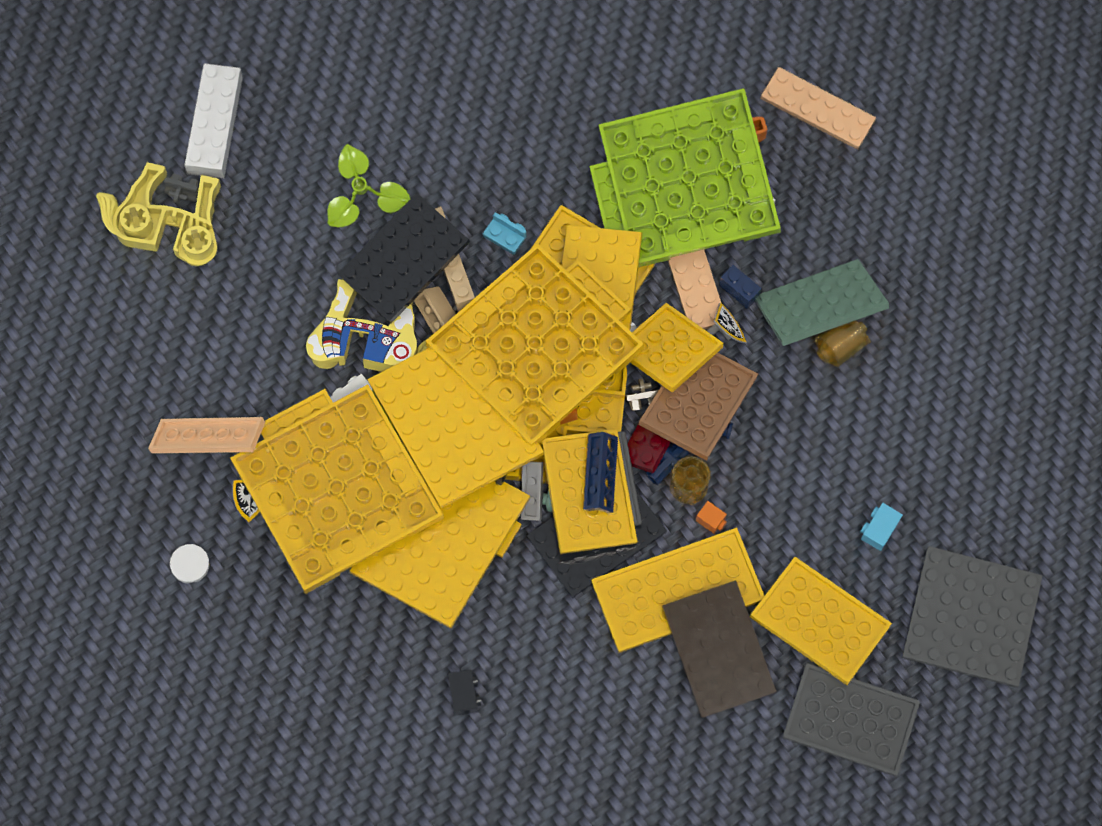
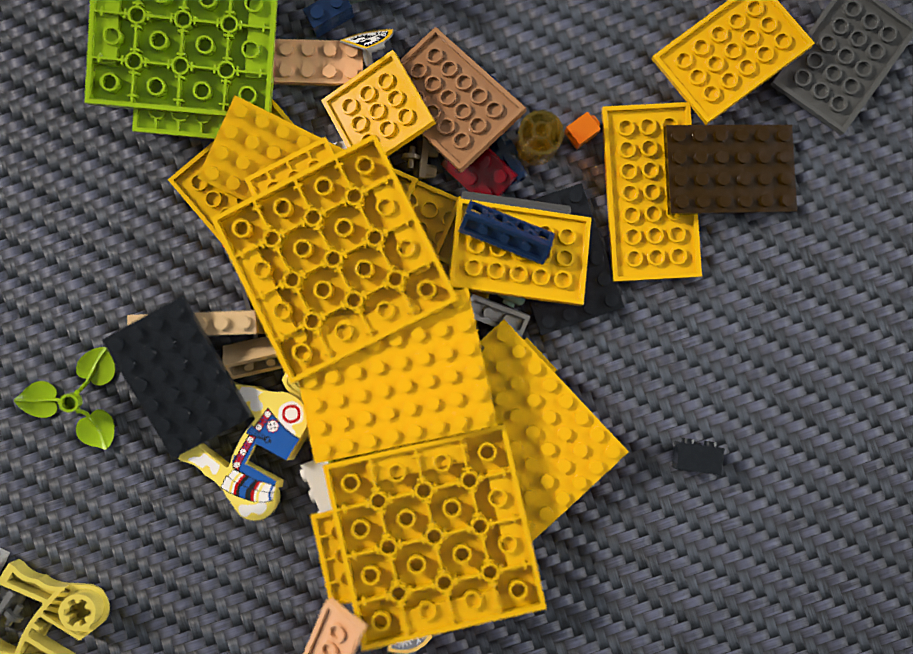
camera: 75 degrees left, 15 degrees up
(505, 233) = (181, 252): medium azure bracket -> none

